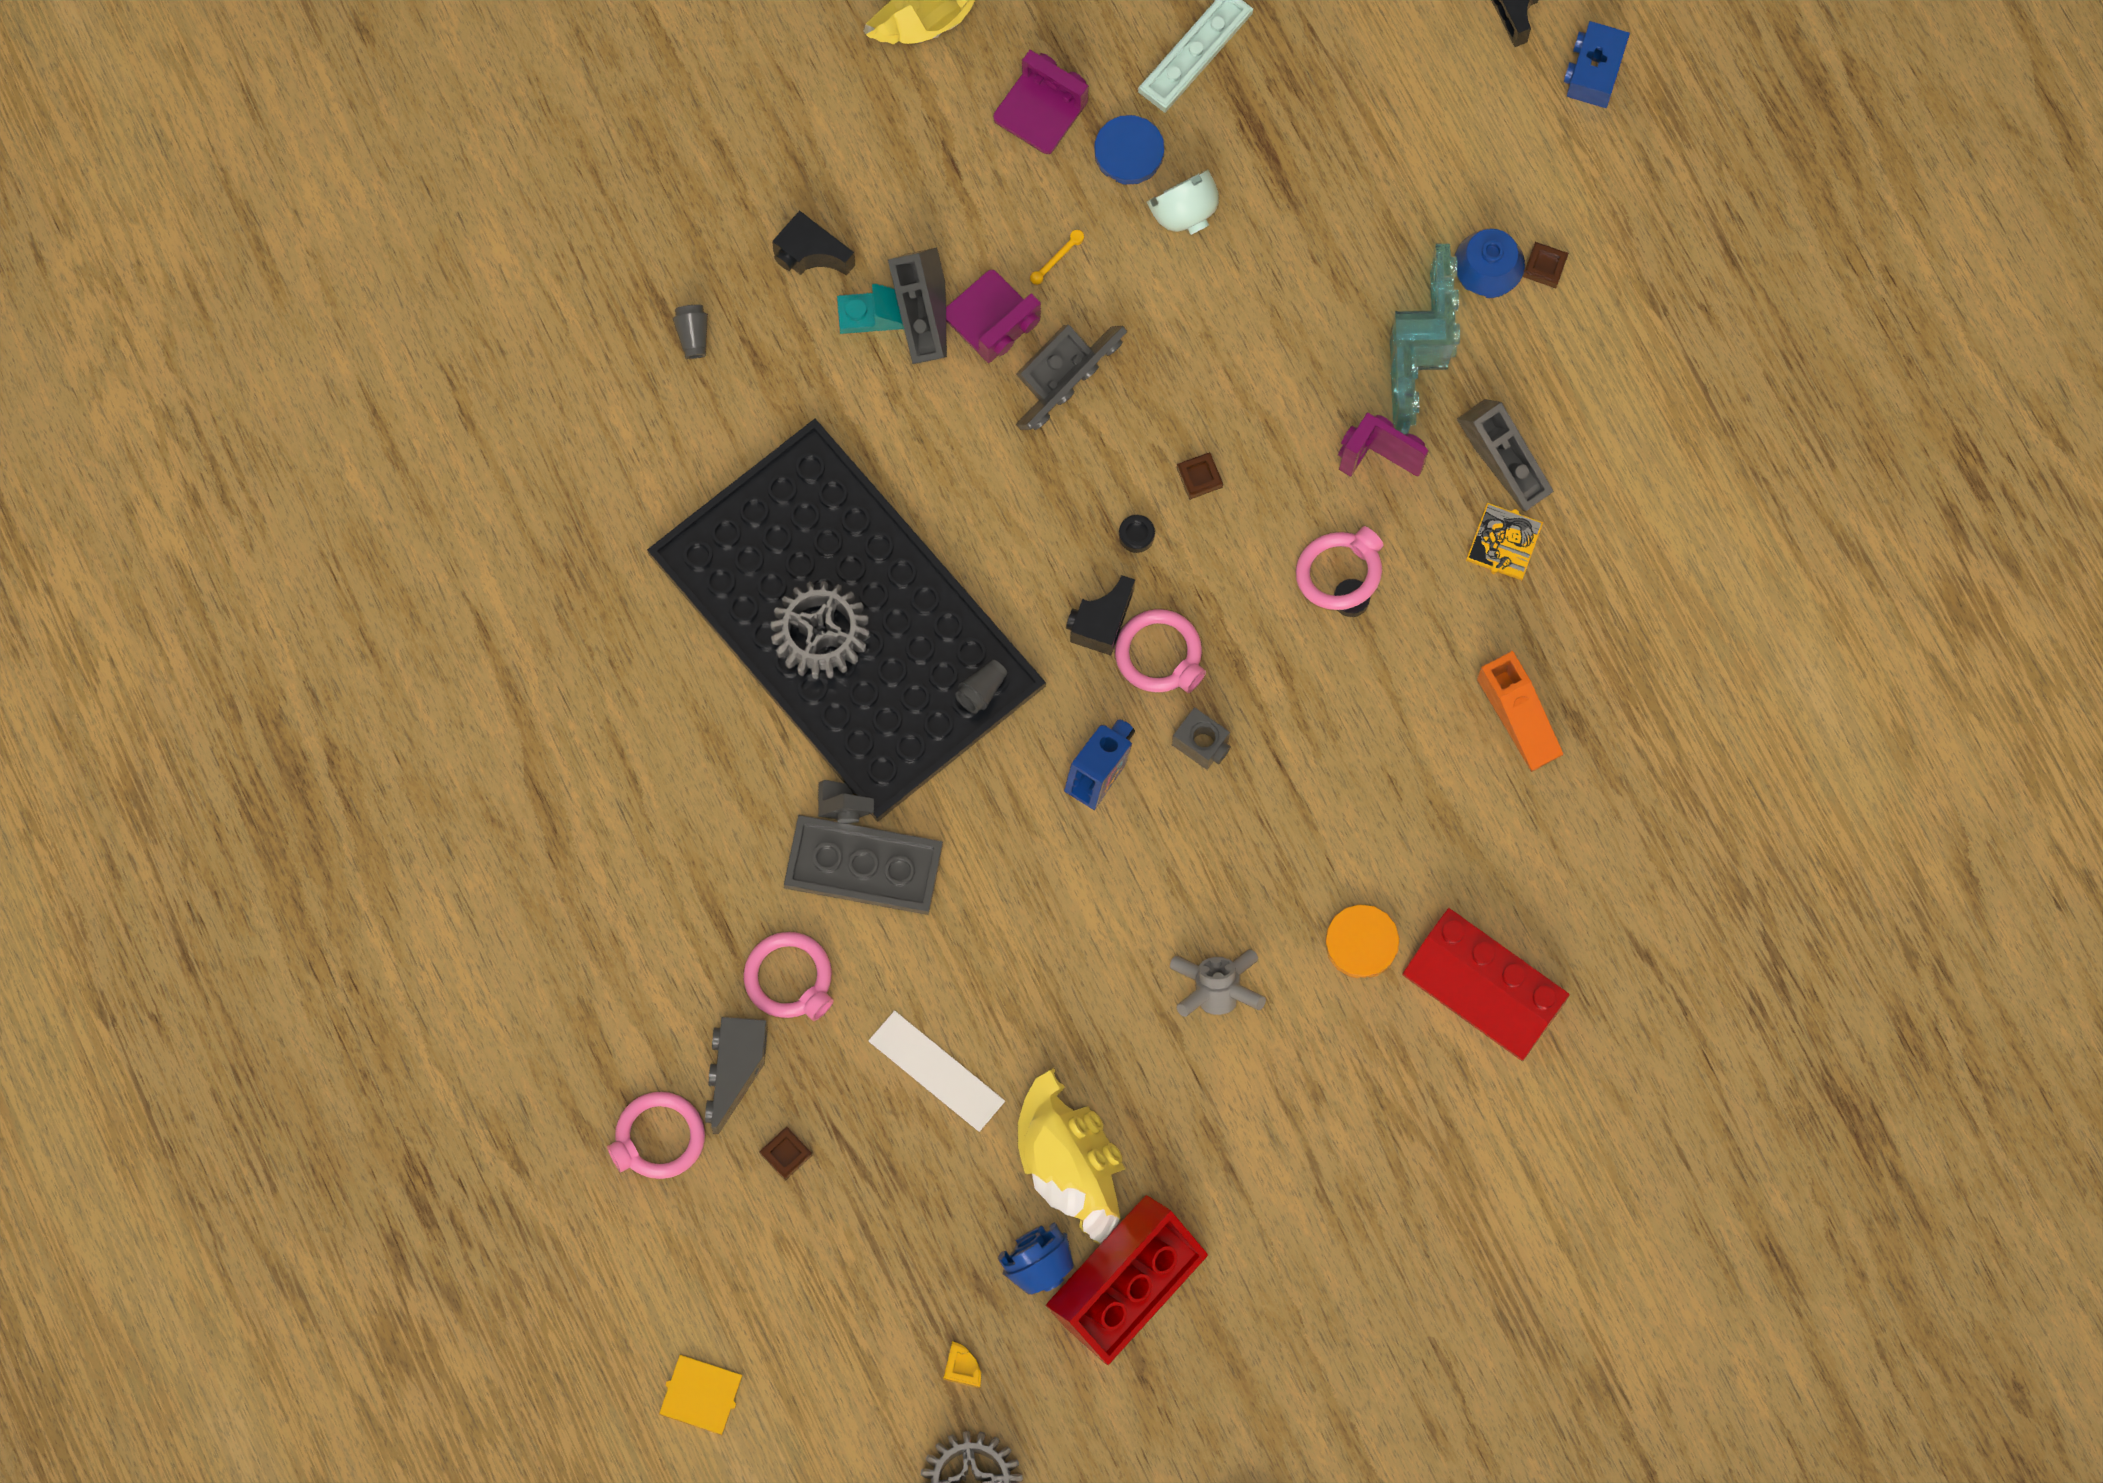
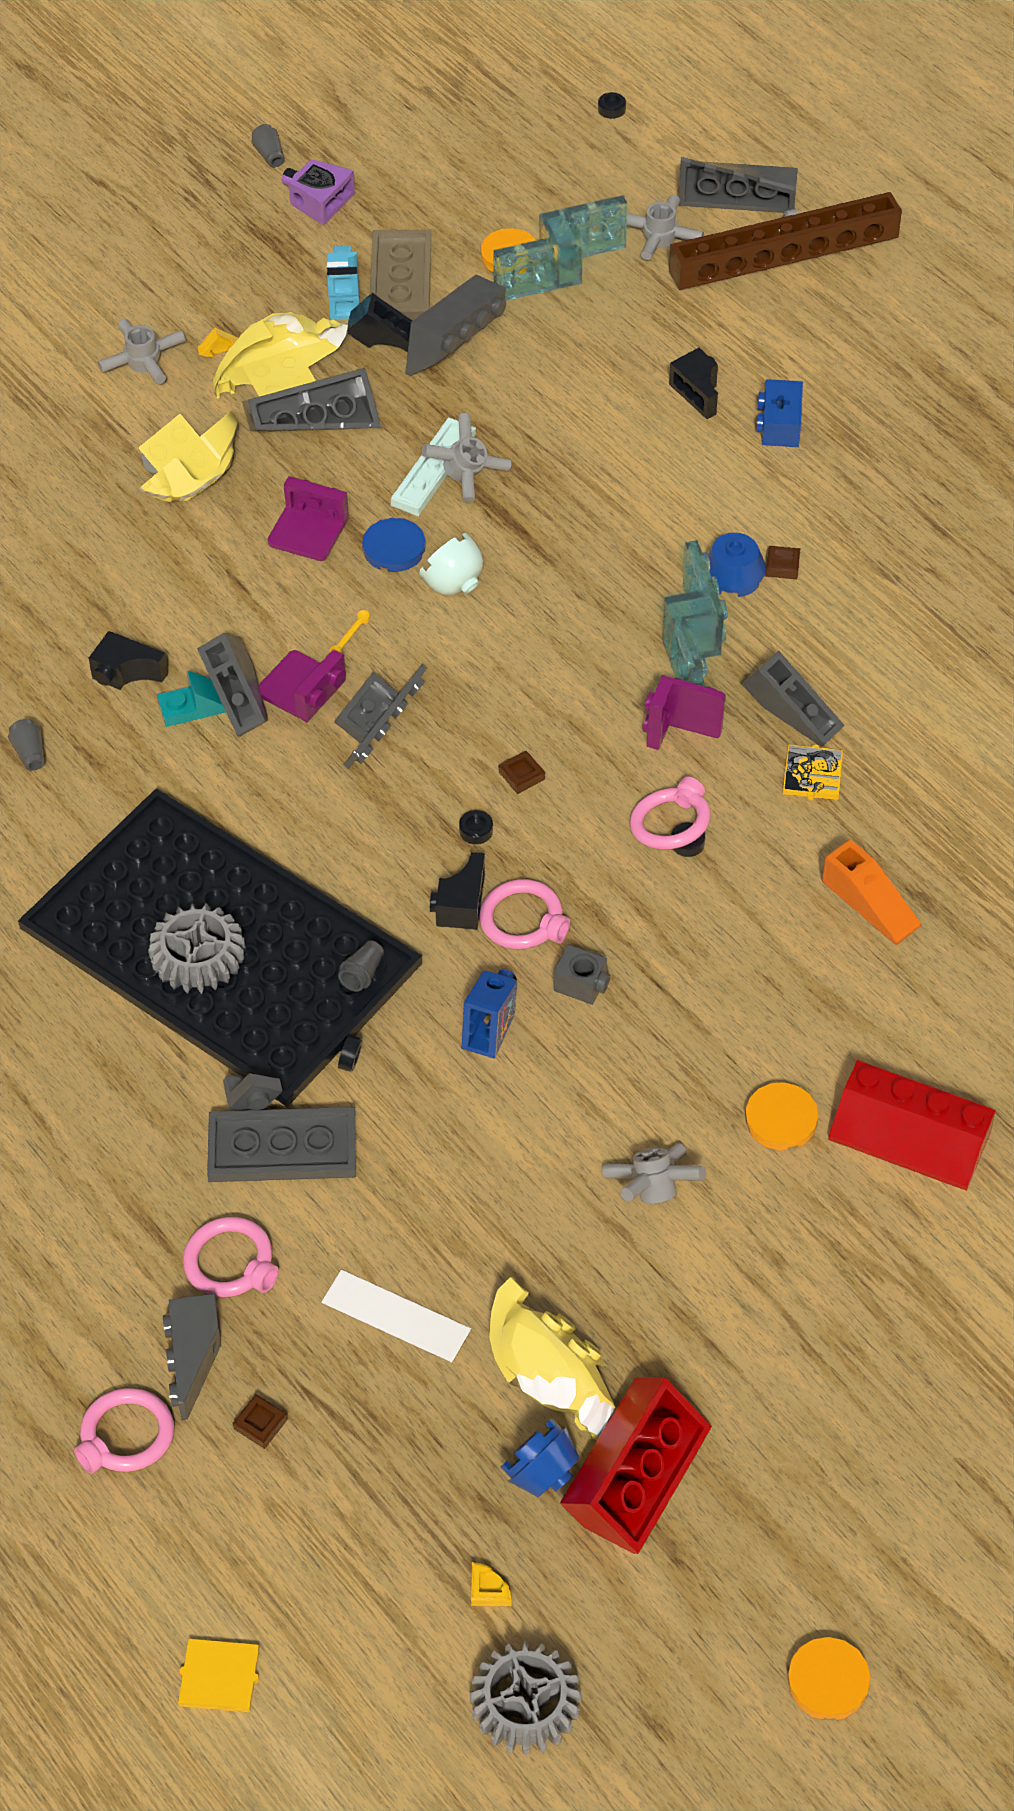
camera: 10 degrees left, 20 degrees down
(951, 778) = (350, 1053): none -> black tile
(1235, 67) = (465, 458): none -> light grey bar

